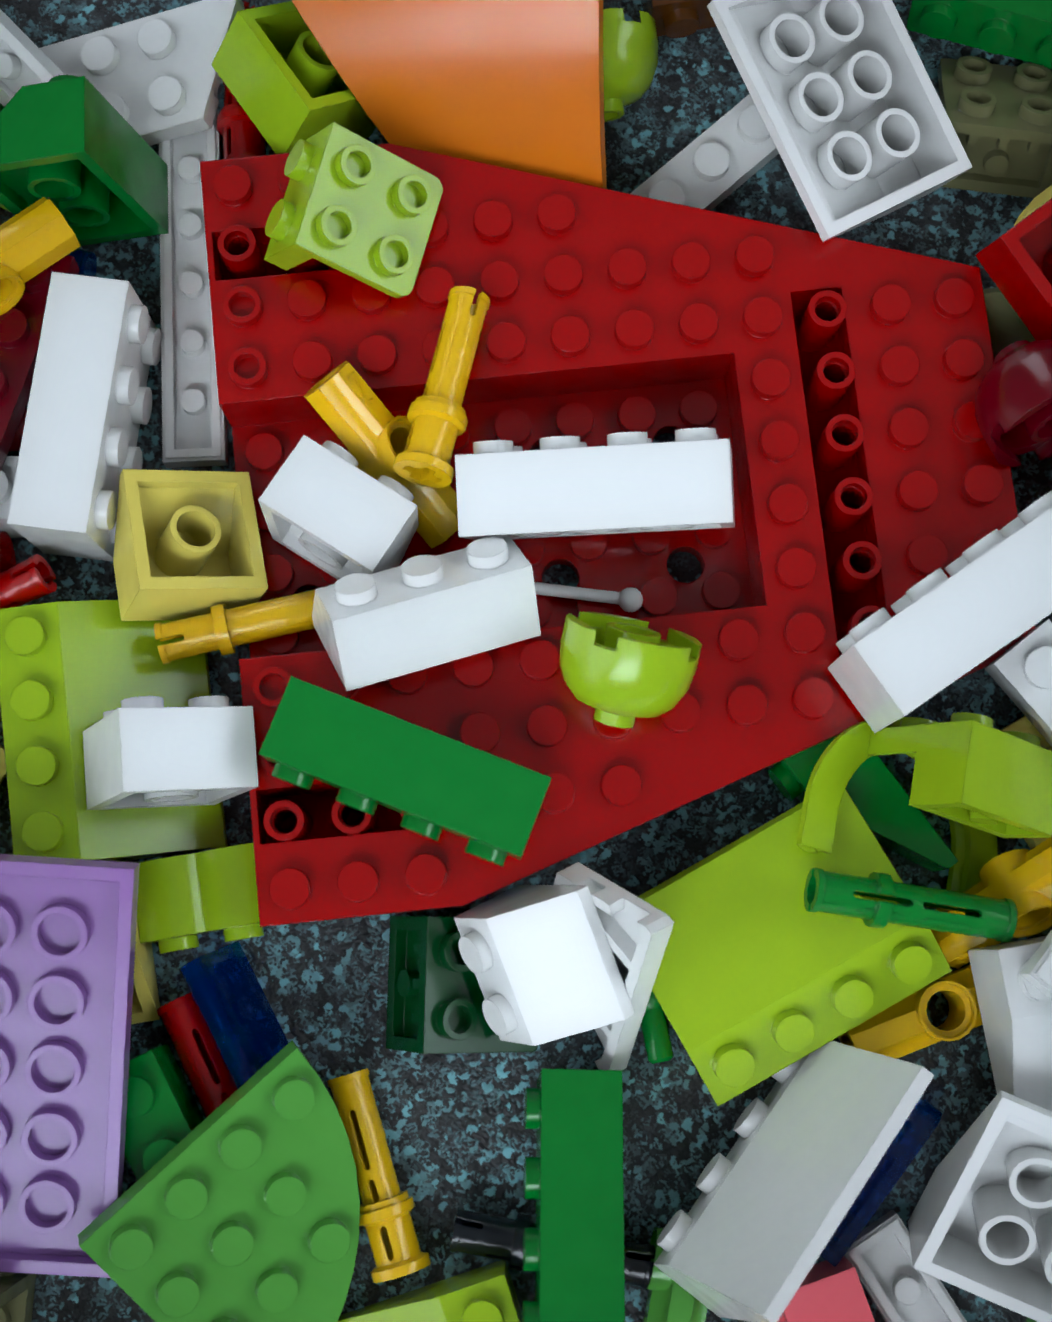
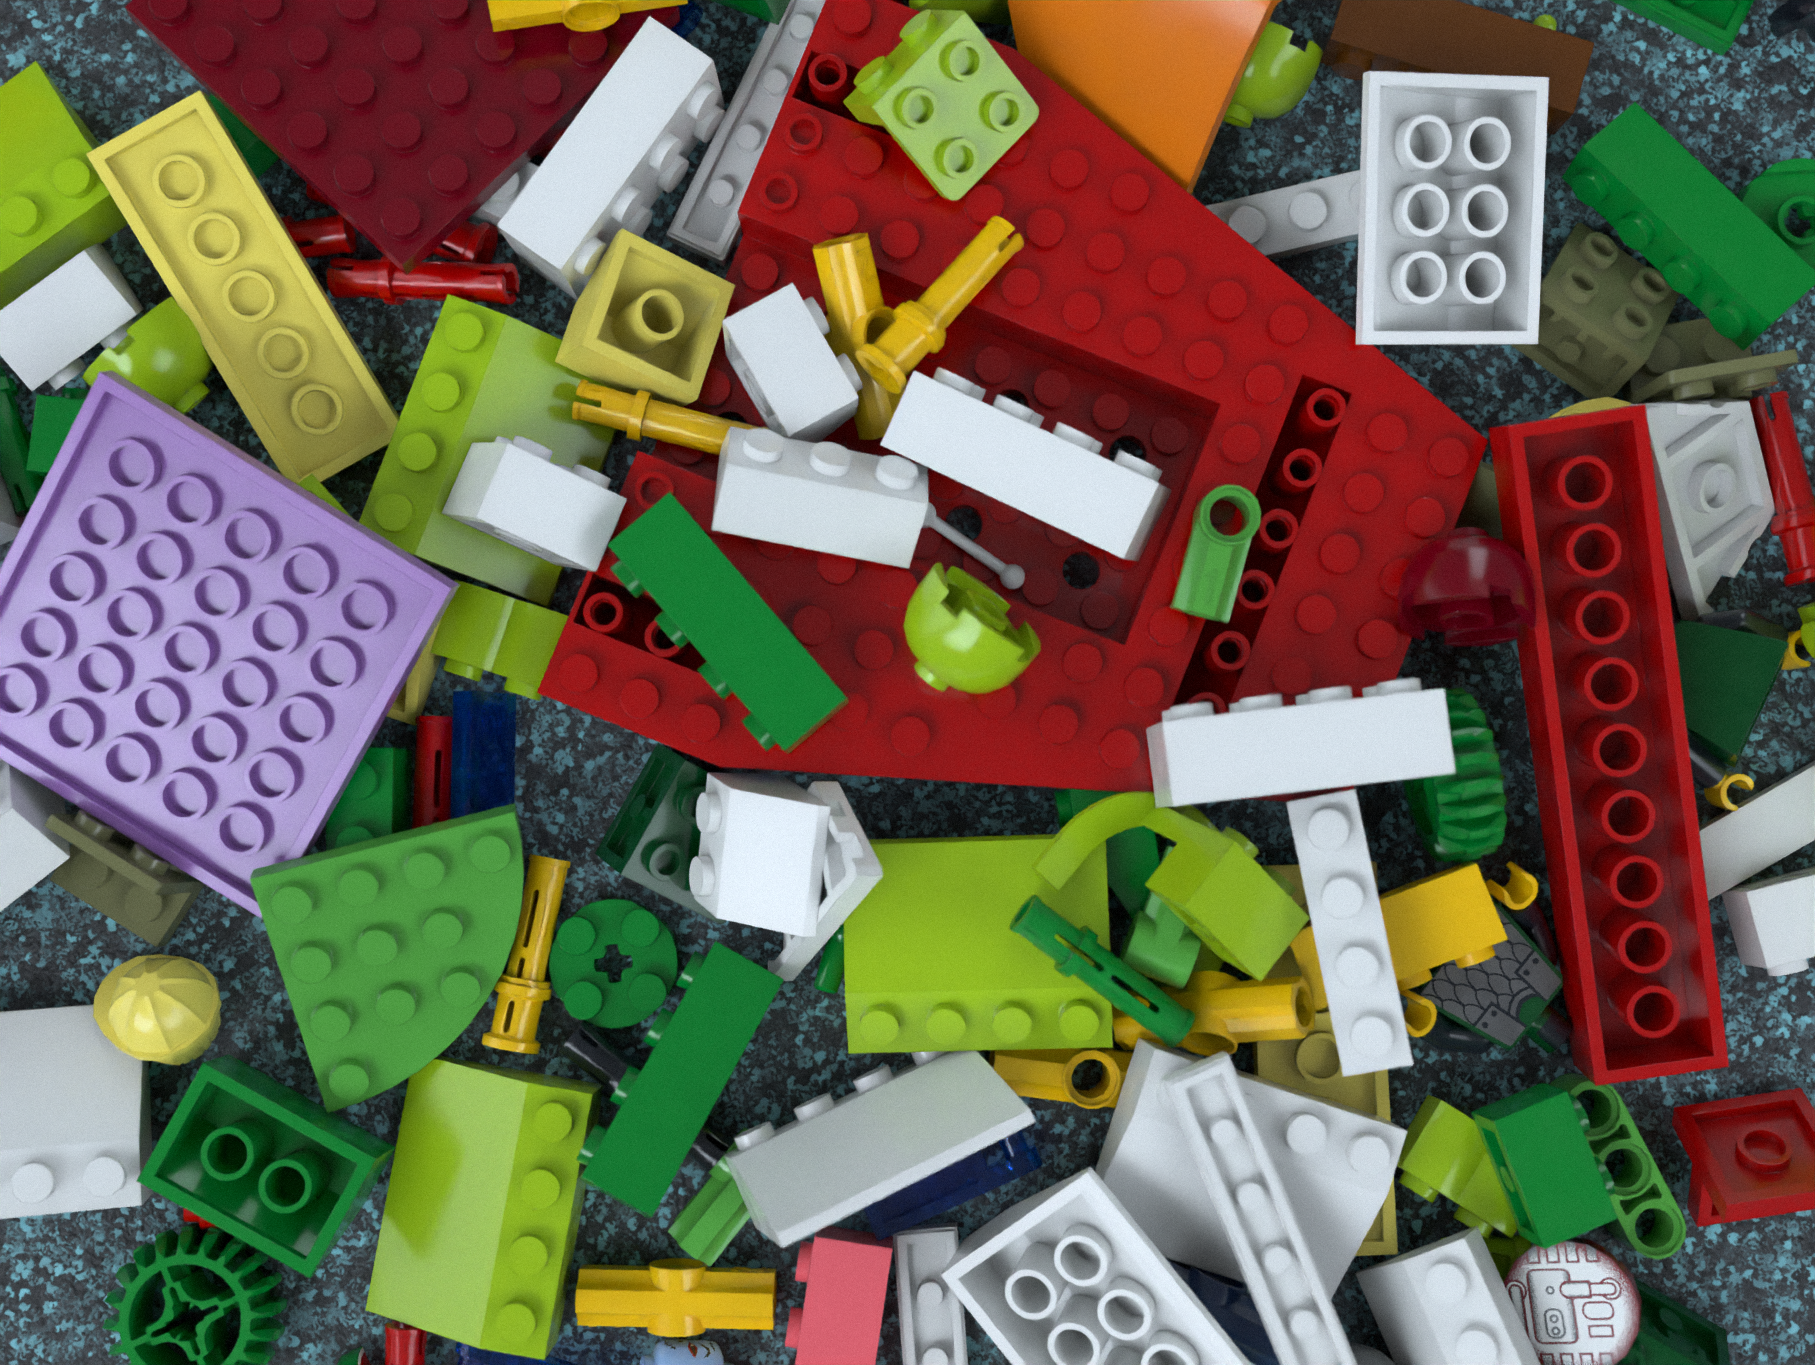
camera: 30 degrees right, 5 degrees up
(448, 1179) = (590, 992): none -> green plate
(810, 485) = (1214, 560): none -> bright green piece
(939, 849) = (1160, 943): none -> bright green piece

